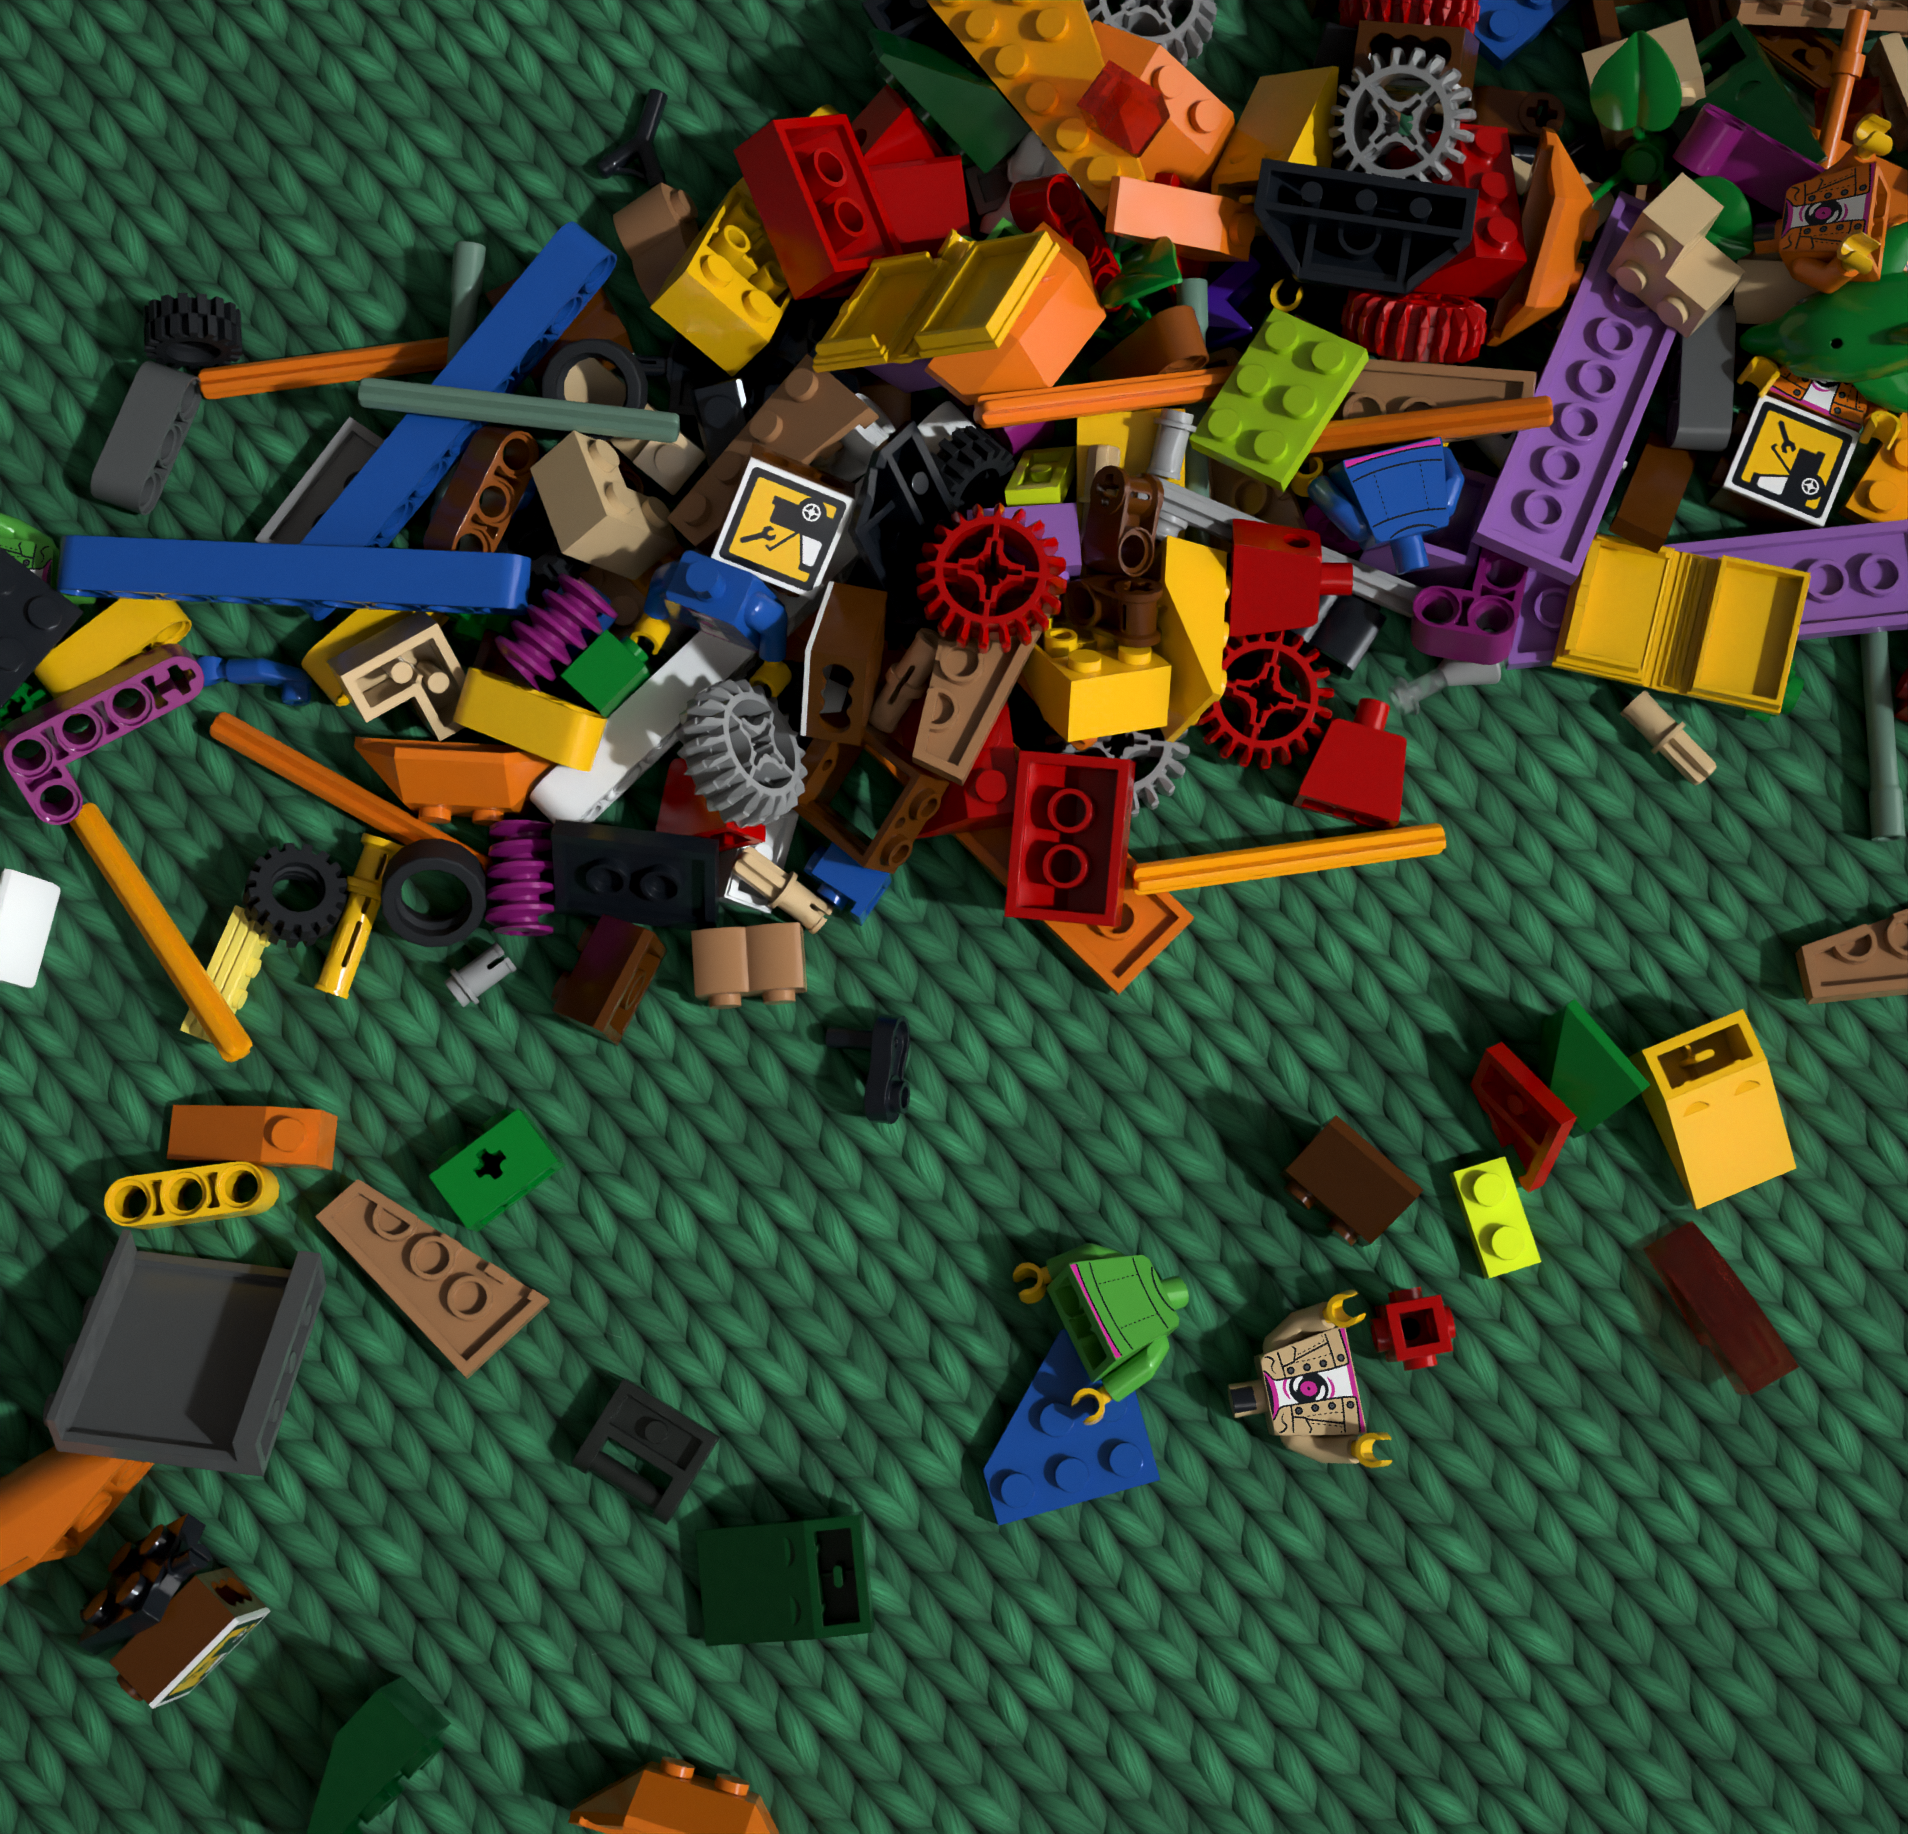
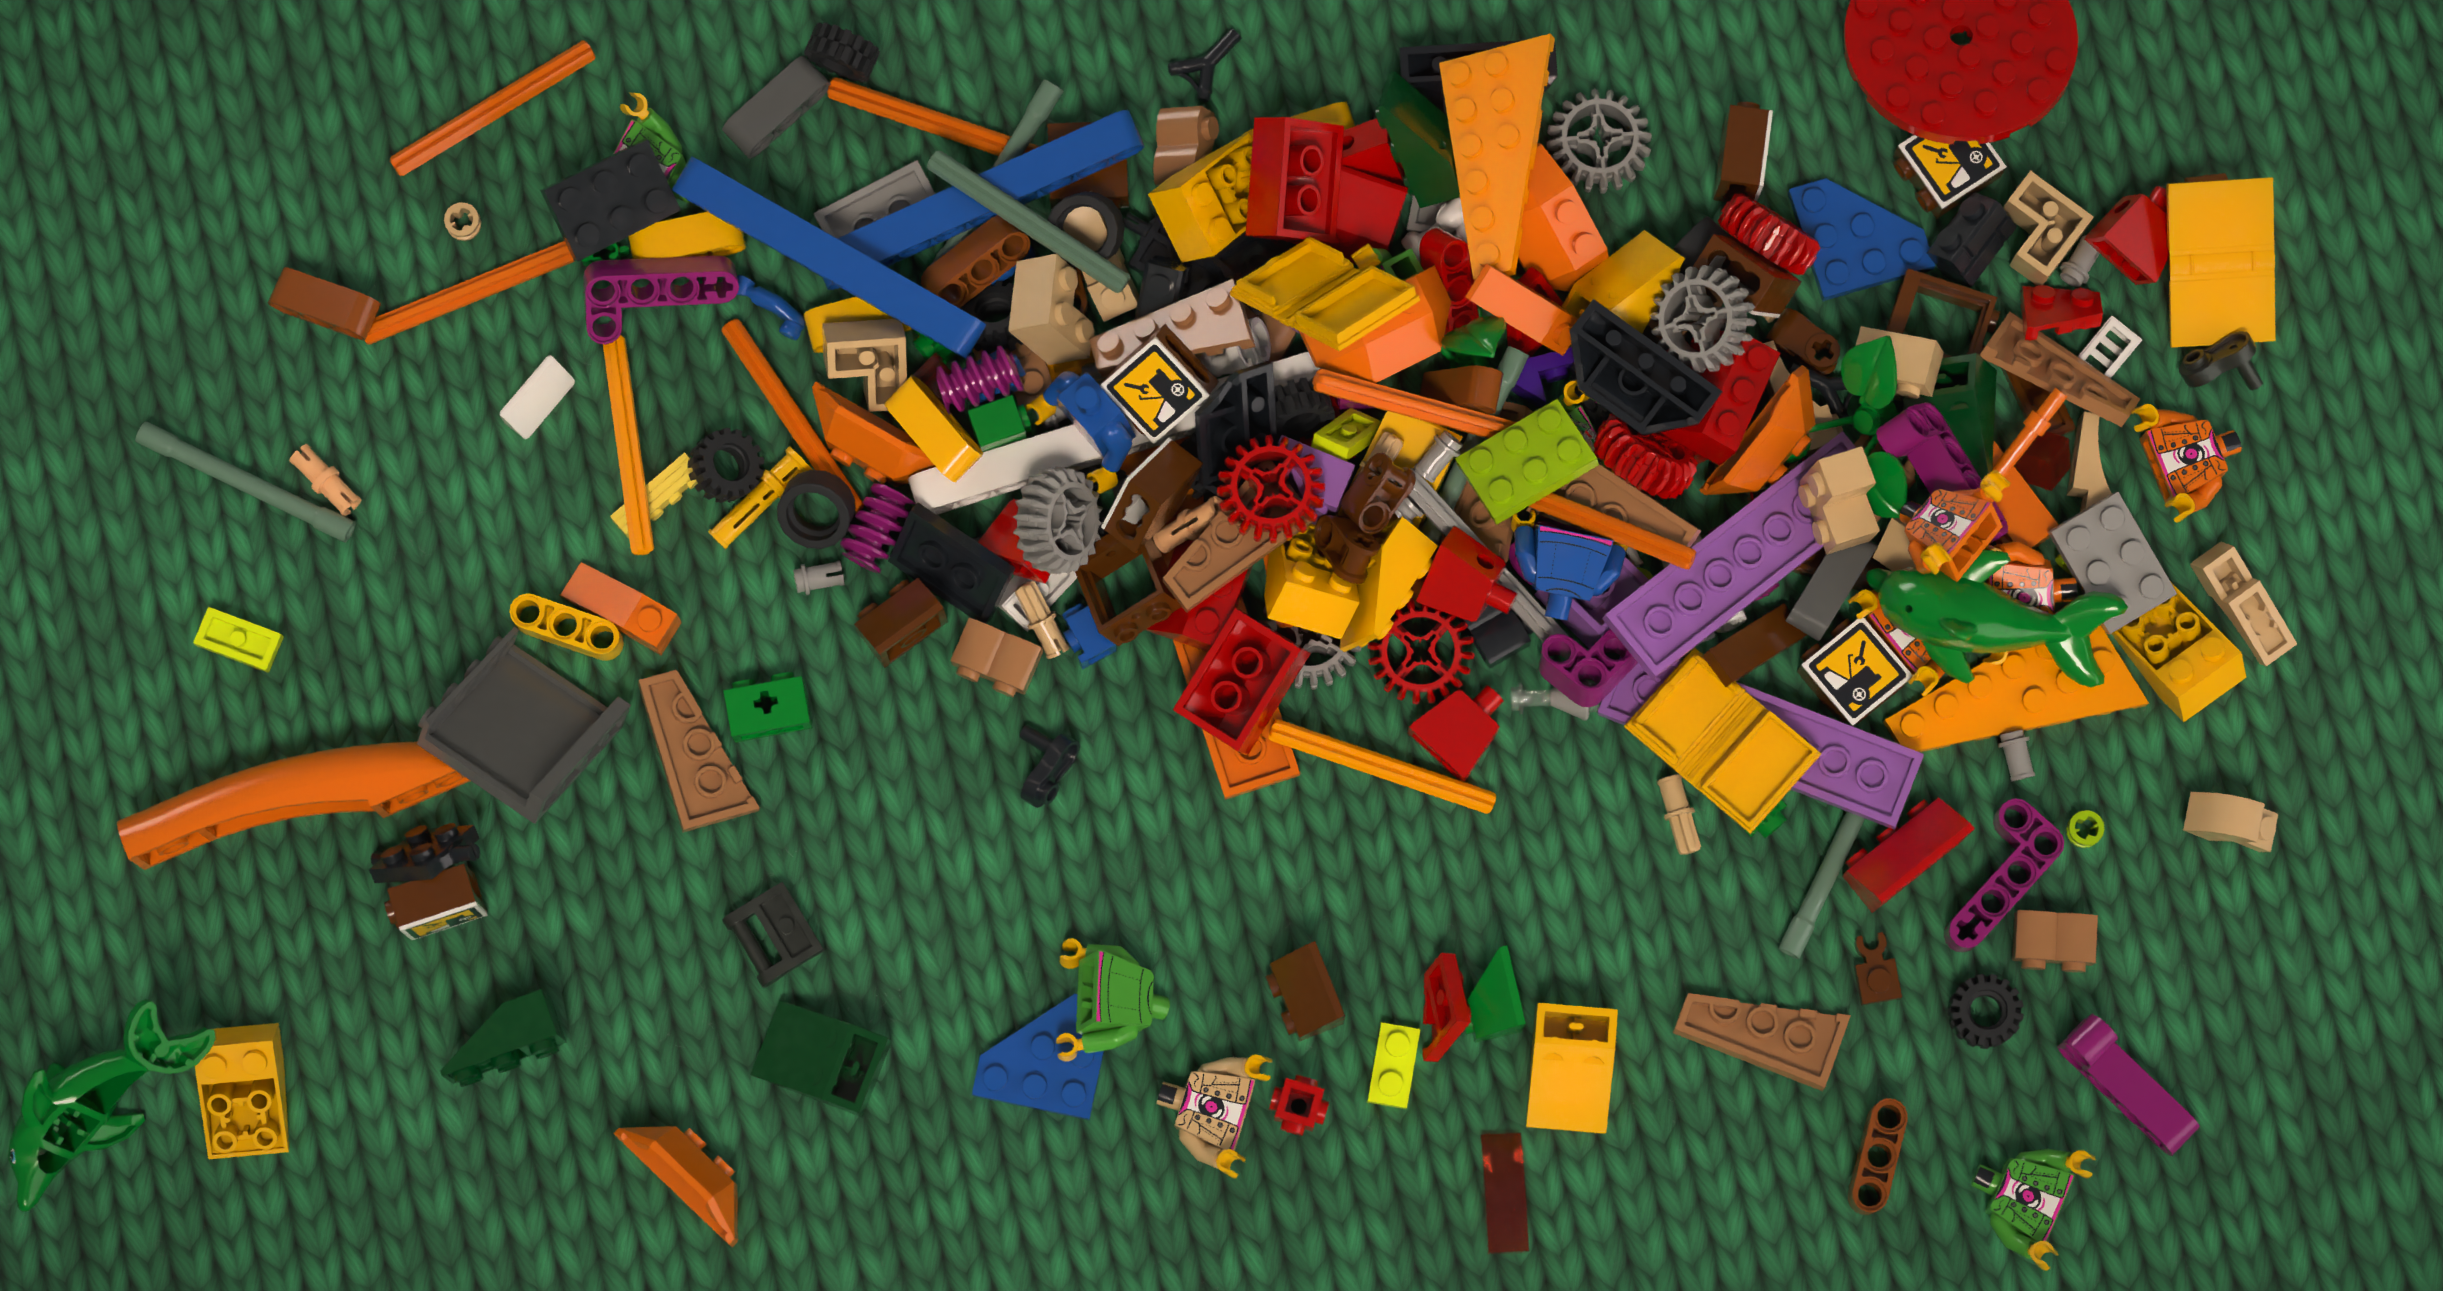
camera: 25 degrees right, 0 degrees up
(1123, 109) = (1517, 222): clear red panel -> none

